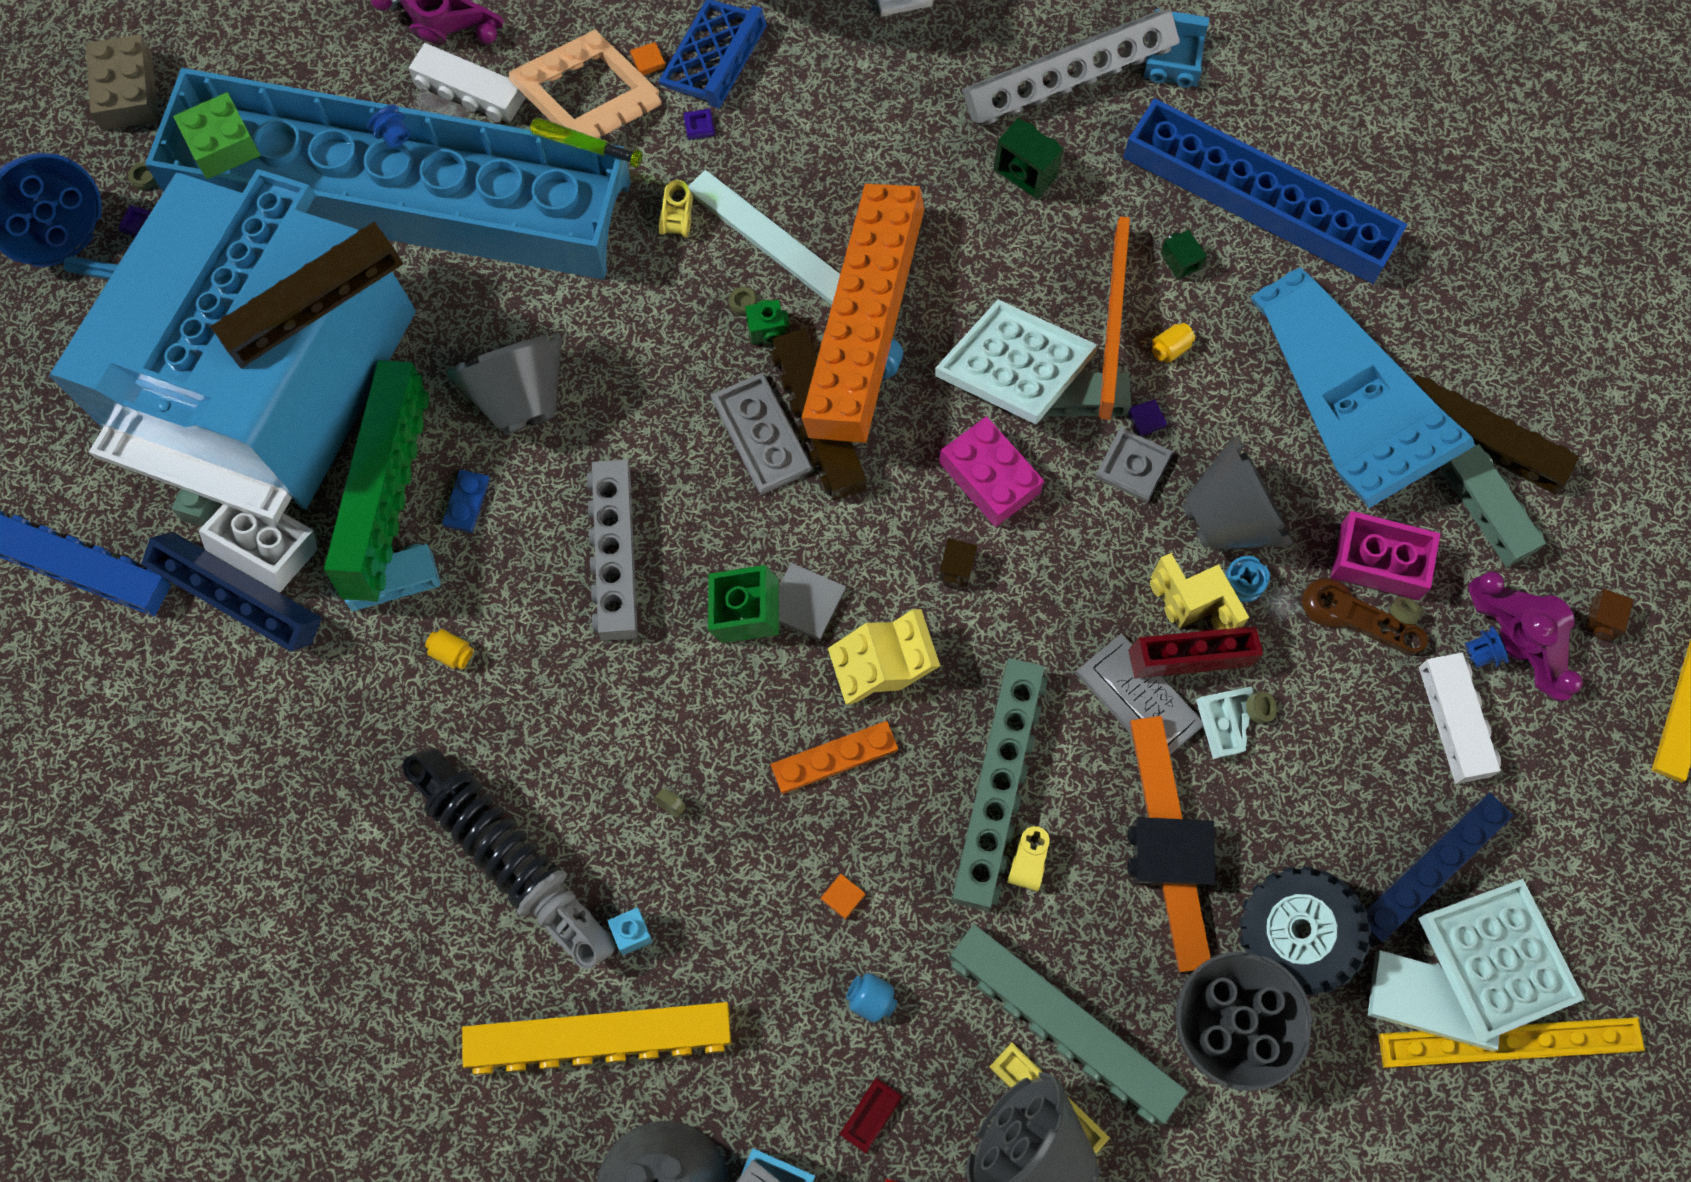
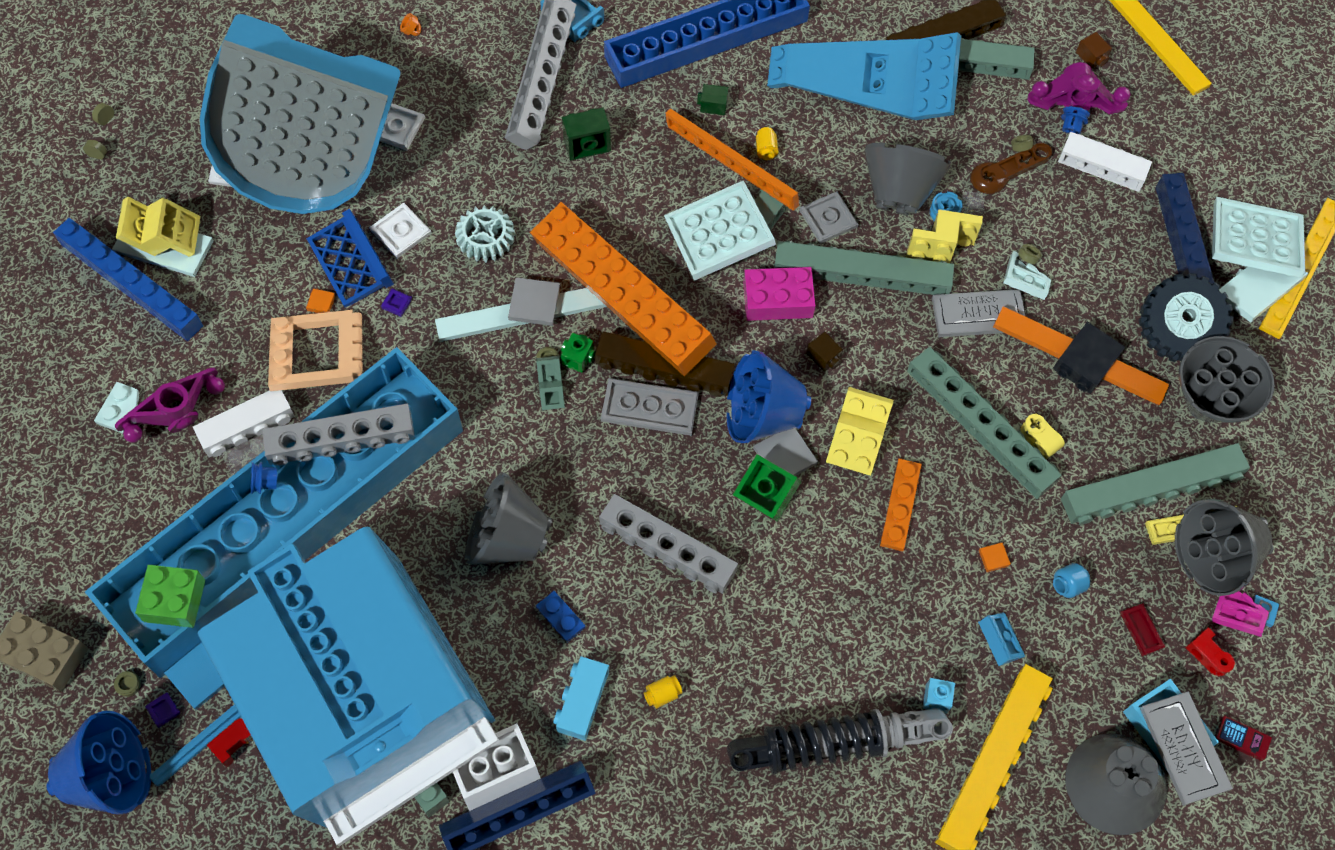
camera: 55 degrees left, 5 degrees down
(307, 295) = (388, 589): dark brown brick -> none
(377, 482) = (517, 656): green brick -> none
(437, 112) = (326, 429): none -> light grey brick
(570, 137) = (360, 375): clear neon green piece -> none
(670, 802) = (866, 618): olive tile -> none
(676, 216) = (453, 354): light yellow piece -> none
(712, 325) = (550, 383): none -> sand green slope
(750, 962) = (1001, 638): none -> dark azure slope
(782, 72) = (400, 230): none -> white tile
(793, 244) = (534, 301): none -> light grey tile
(842, 540) = (764, 399): none -> blue cone
(848, 158) = (480, 243): none -> light aqua gear
(1094, 538) = (867, 268): none -> sand green brick
(1147, 418) = (805, 189): dark purple tile -> none
(1195, 652) = (976, 262): dark red brick -> none
(1385, 555) = (984, 129): dark pink brick -> none

